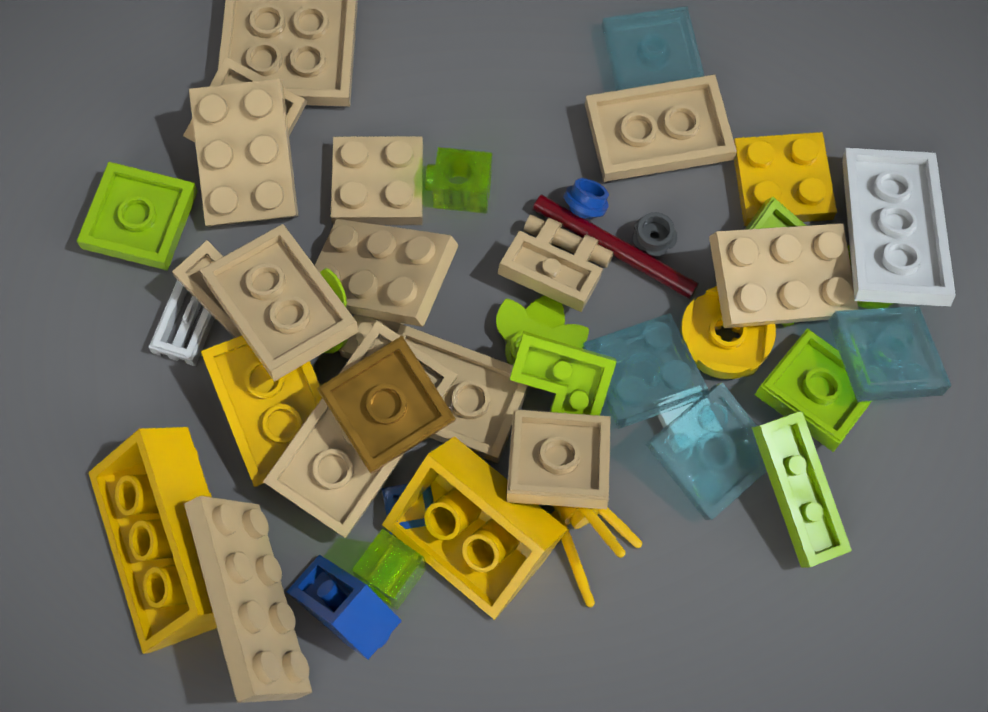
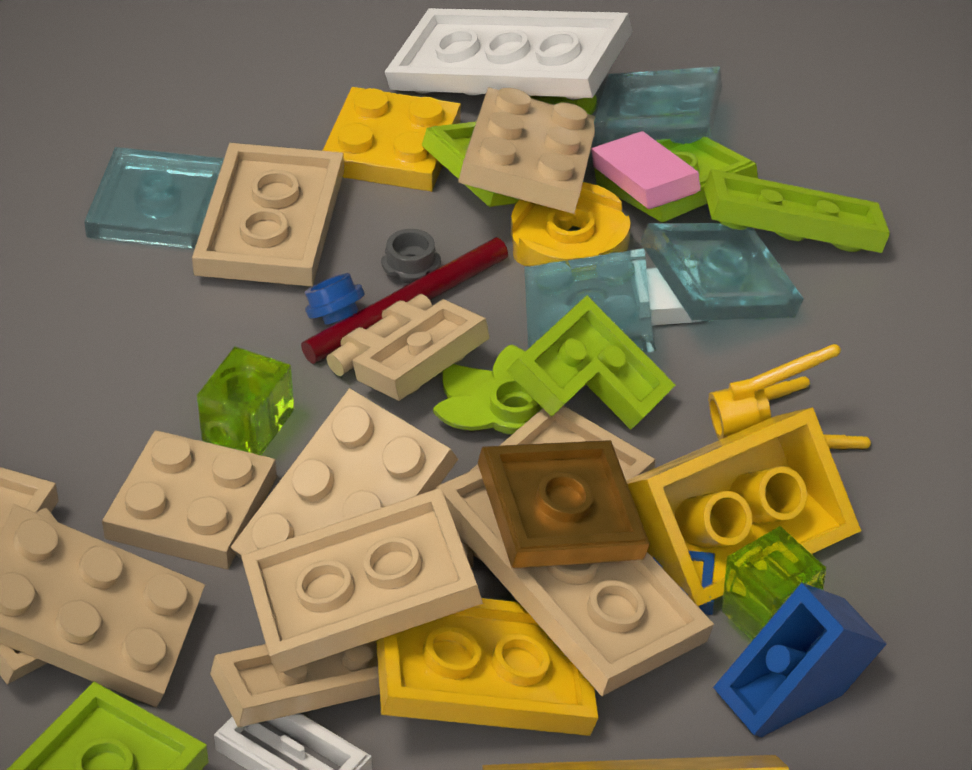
camera: 70 degrees left, 25 degrees down
(248, 600) = (800, 734): tan plate -> none
(559, 459) = (689, 384): tan plate -> none
(793, 364) = (646, 170): none -> bright pink tile

